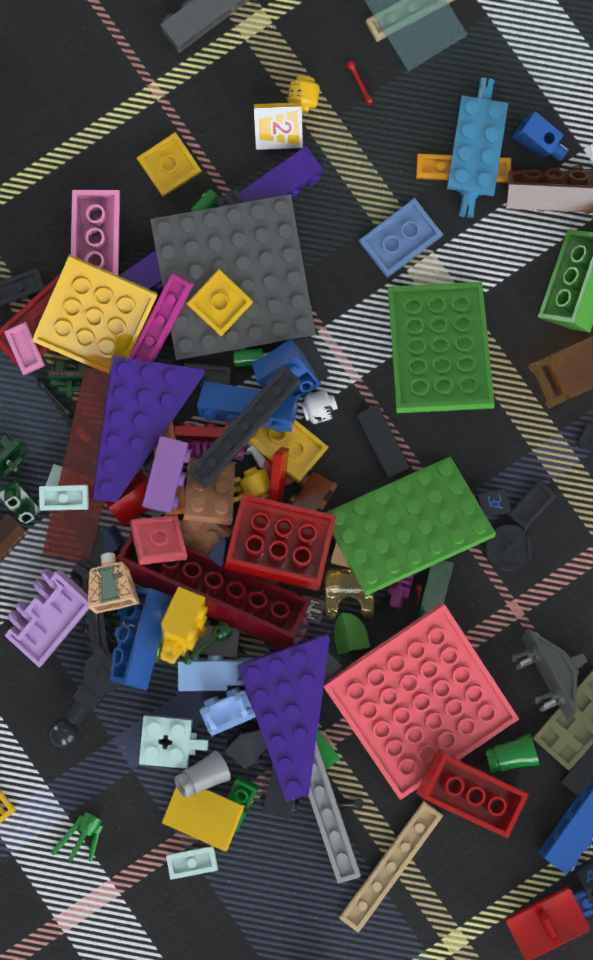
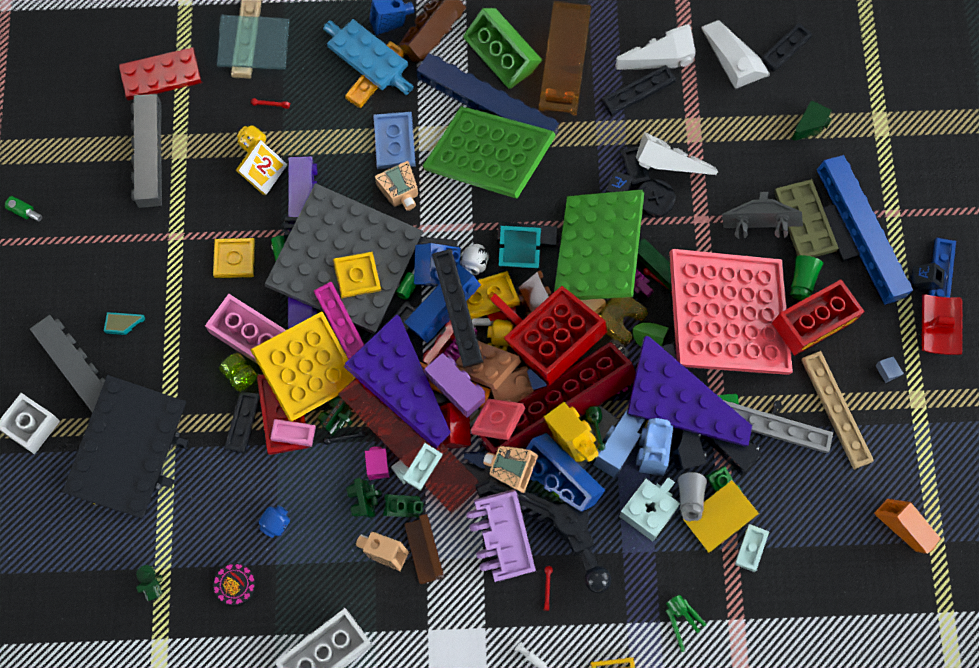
camera: 65 degrees left, 15 degrees down
(31, 103) = (121, 323): none -> olive tile
(47, 448) = (377, 463): none -> dark pink brick
(48, 679) = (548, 570): none -> red hinge
(52, 253) = (238, 371): none -> clear neon green wheel
(350, 278) = (398, 185): none -> light nougat torso
(358, 446) = (519, 246): none -> teal piece
(468, 896) = (889, 369): none -> sand blue slope
(506, 305) = (478, 94): none -> dark blue brick
(558, 530) = (657, 154): none -> white wedge

